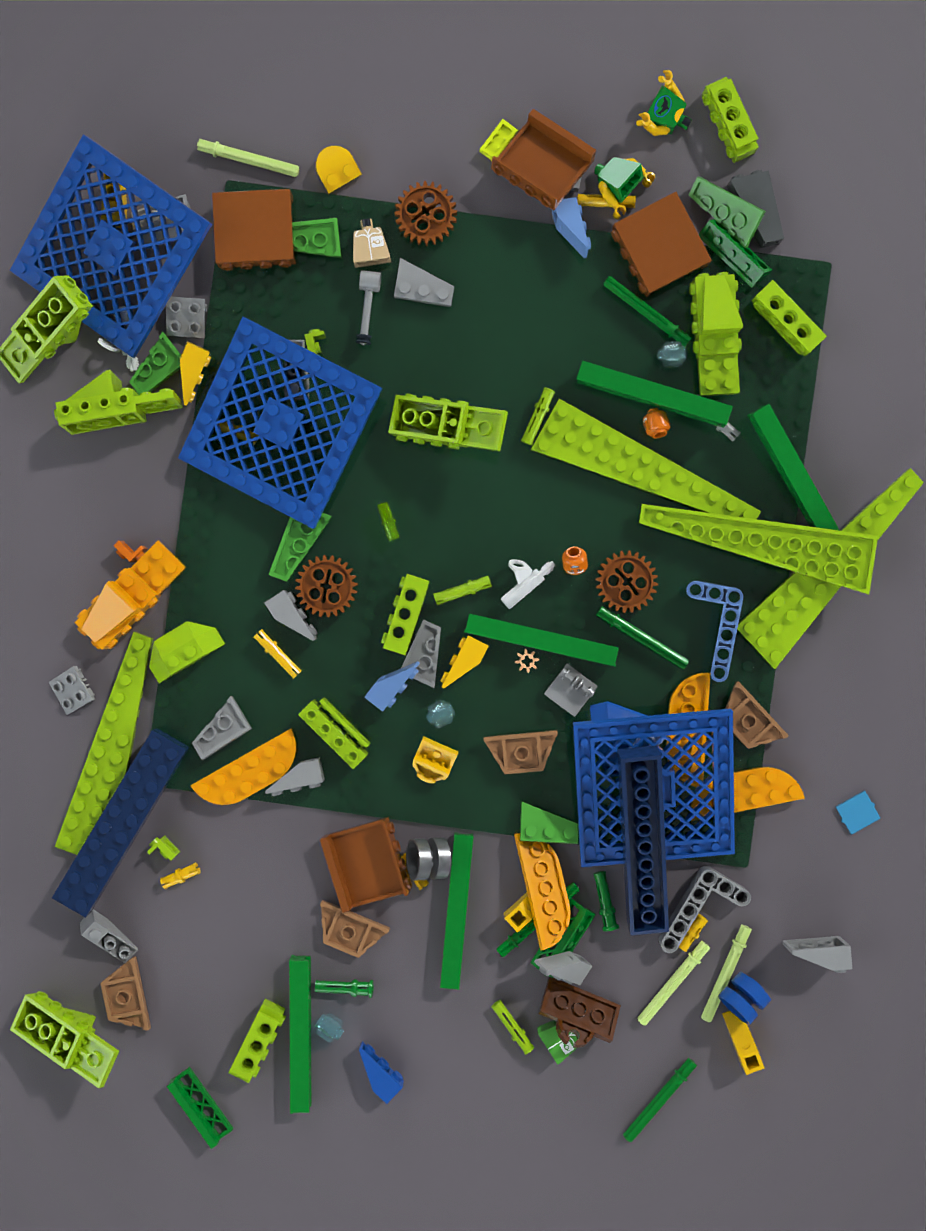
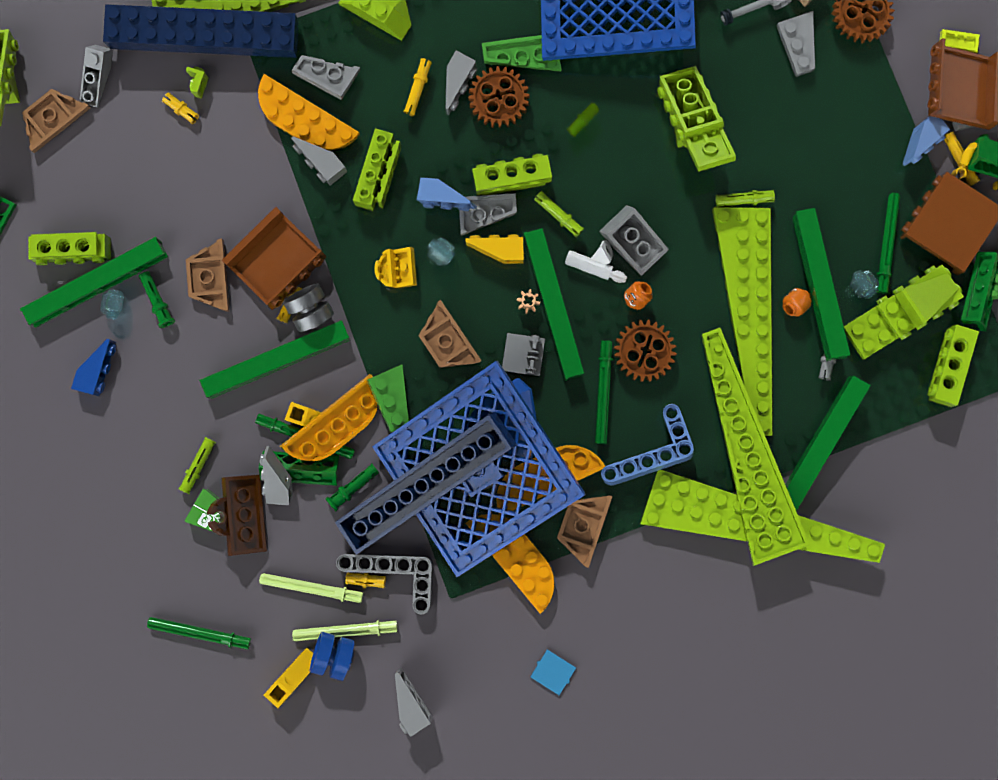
camera: 60 degrees right, 5 degrees down
(522, 536) = (634, 239): none -> light grey slope

